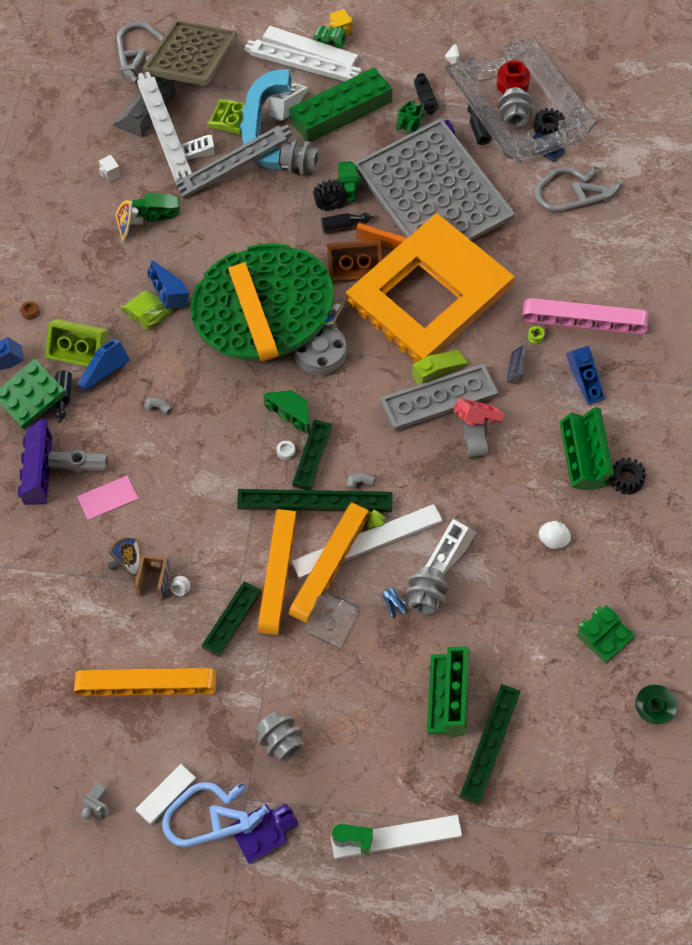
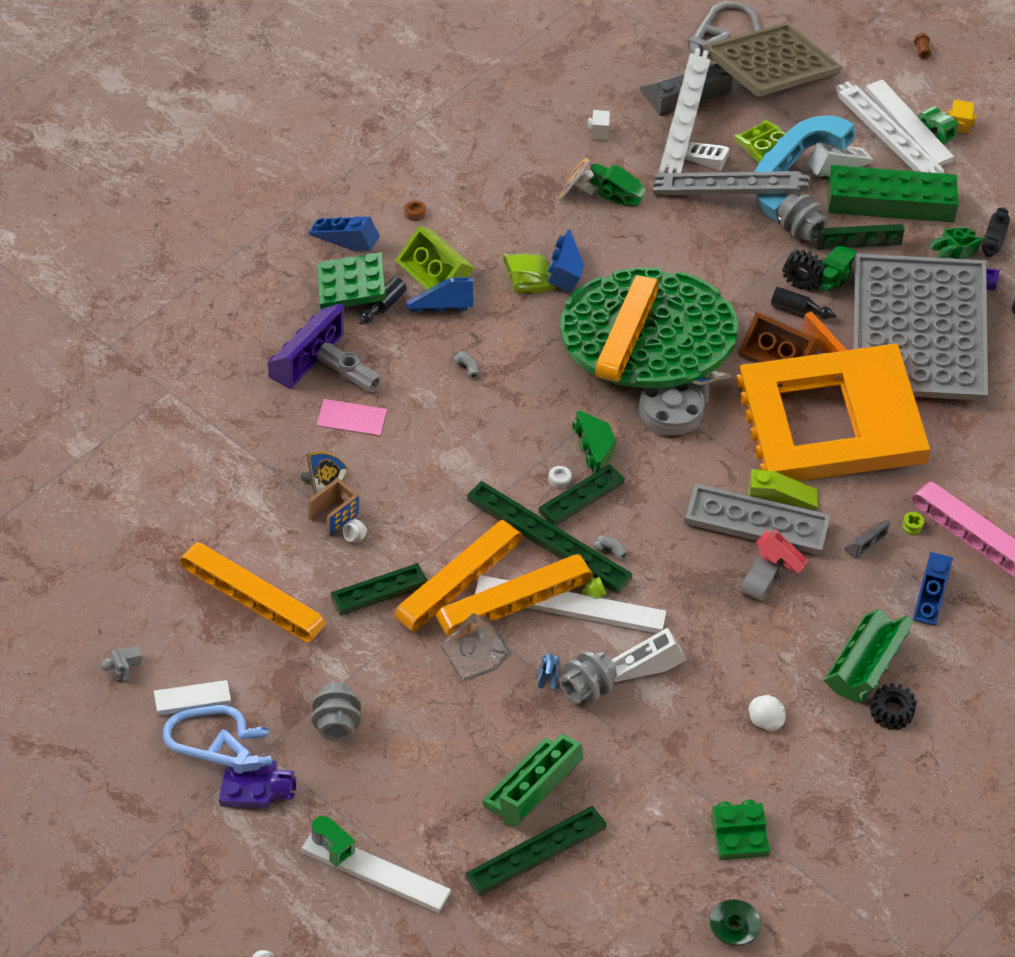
camera: 30 degrees right, 10 degrees down
(344, 148) = (860, 236): none -> dark green plate

